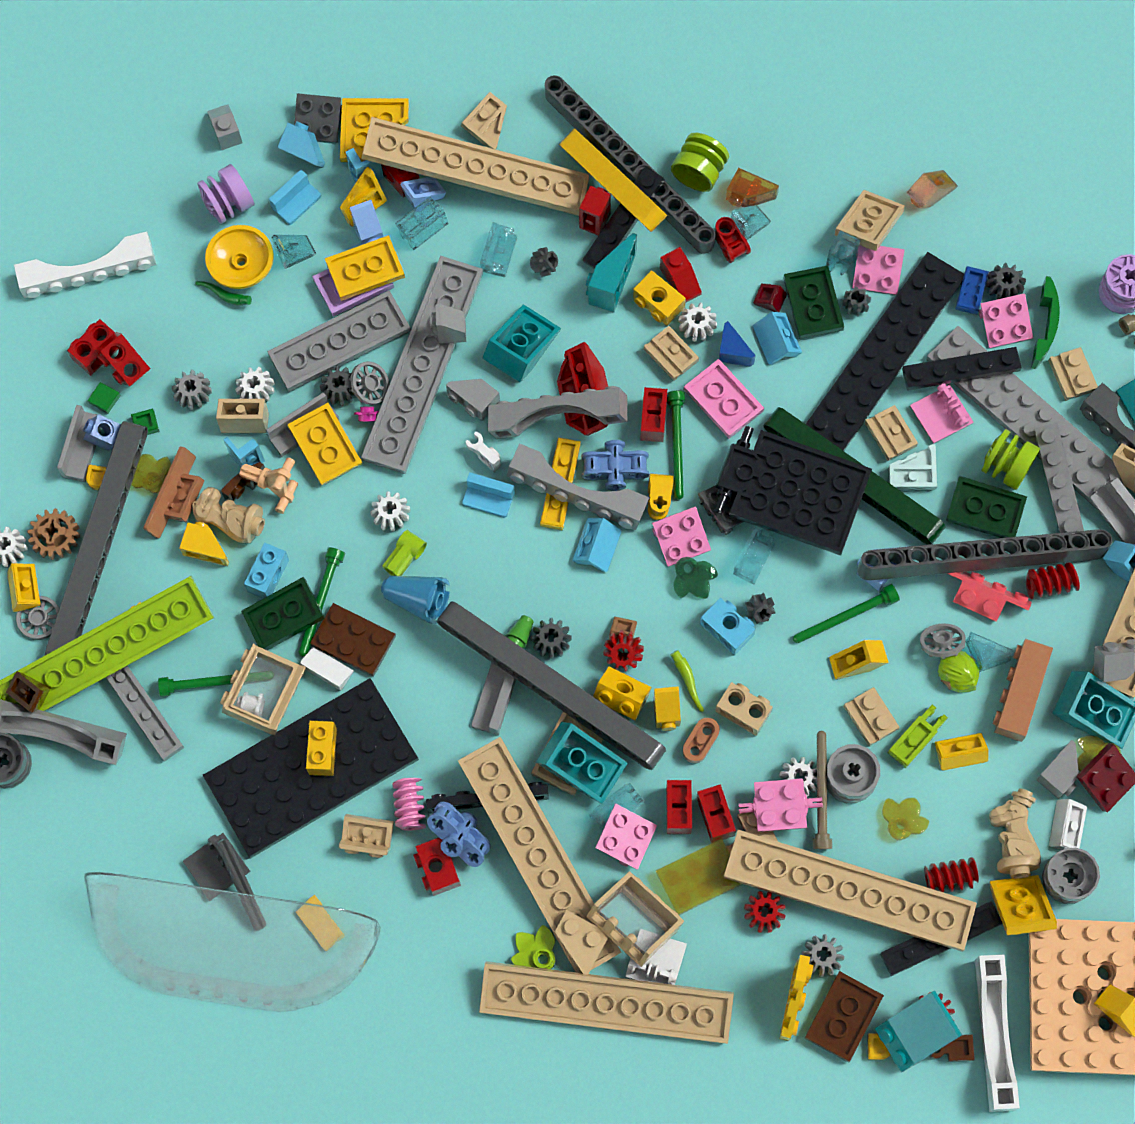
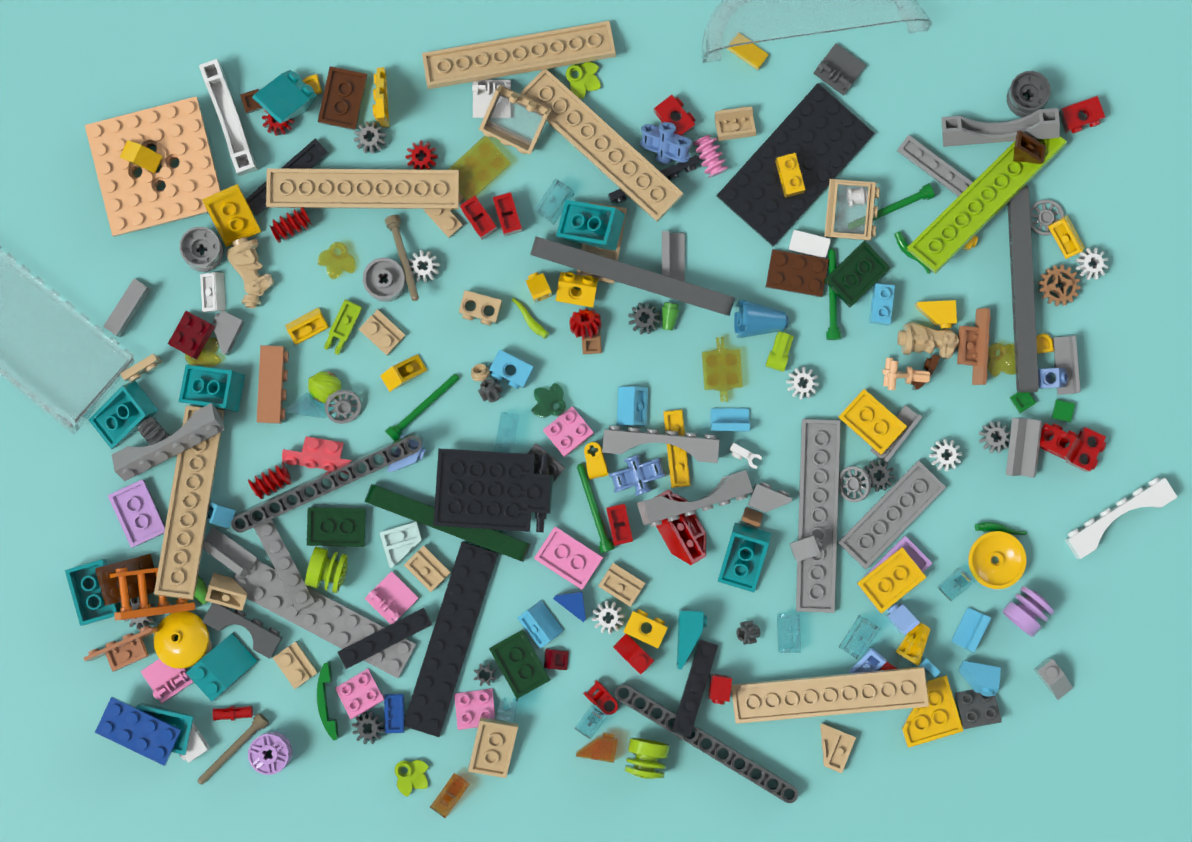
camera: 160 degrees right, 15 degrees up
(162, 367) = (1024, 447): none -> light grey panel
(216, 635) = (902, 243): none -> green animal
(233, 867) = (816, 59): dark grey axle -> none
(242, 415) = (945, 425): tan brick -> none
(247, 454) = (930, 388): medium azure panel -> none
(366, 414) = (848, 458): dark pink plate -> none
(478, 554) = (722, 369): none -> clear yellow plate
(499, 381) = (752, 517): none -> medium nougat slope
(581, 940) = (550, 92): tan wing -> none
(613, 180) = (713, 716): yellow beam -> none
(626, 836) = (540, 179): bright pink hinge -> none
(699, 740) = (505, 273): nougat plate -> none
(768, 638) = (480, 372): none -> tan plate
(780, 805) = (431, 237): bright pink plate -> none
(968, 219) = (413, 778): none -> lime plate

